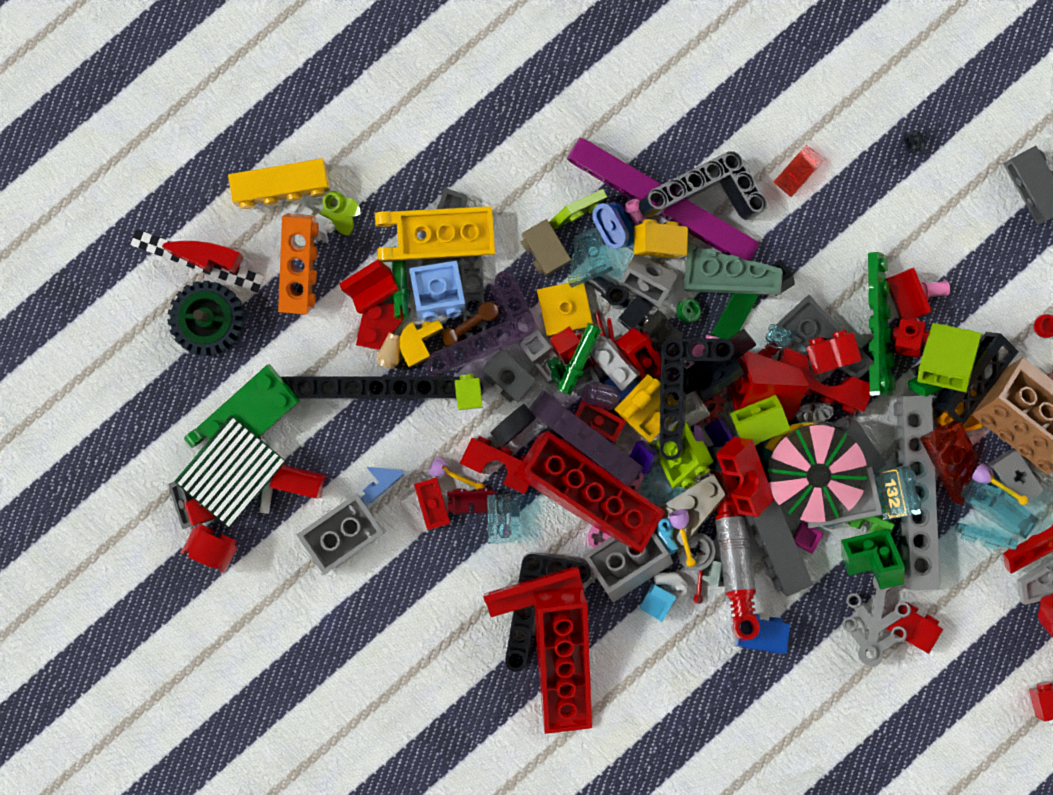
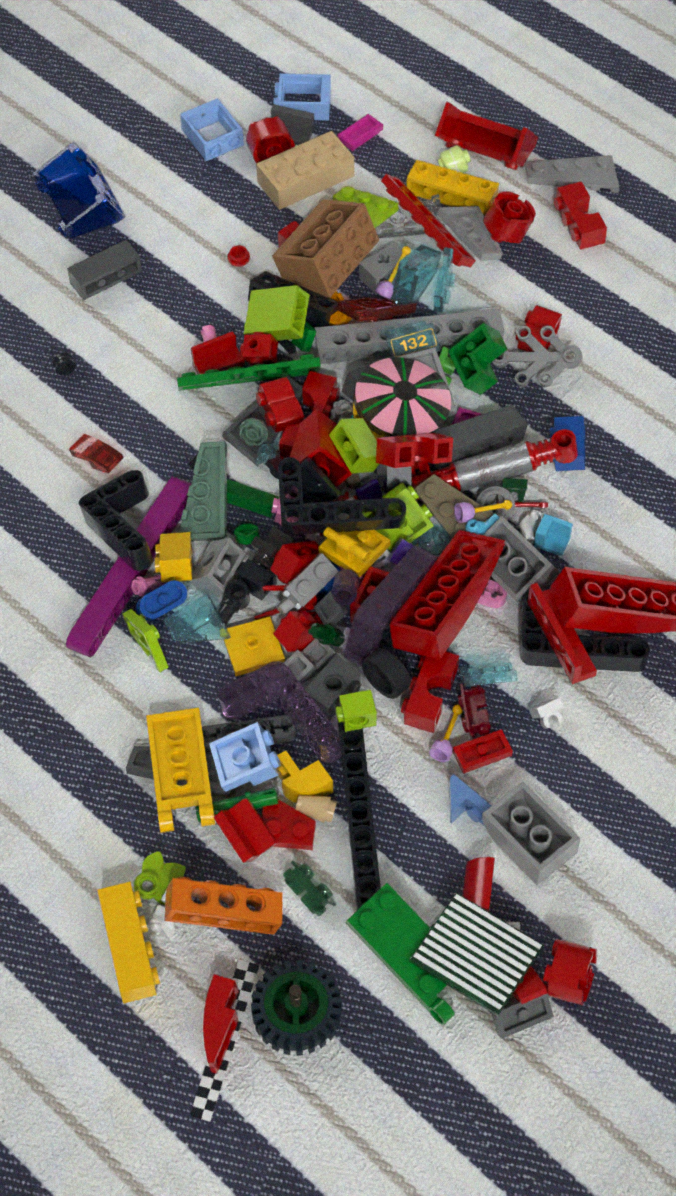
camera: 95 degrees left, 30 degrees down
(309, 346) = (302, 879): none -> clear green hinge
(467, 567) = (547, 709): none -> white tile
(487, 311) = (264, 710): reddish brown bar -> none
(545, 248) = (189, 665): dark tan brick -> none
(578, 361) = (309, 608): green pin -> none
(802, 324) = (253, 431): none -> sand green plate

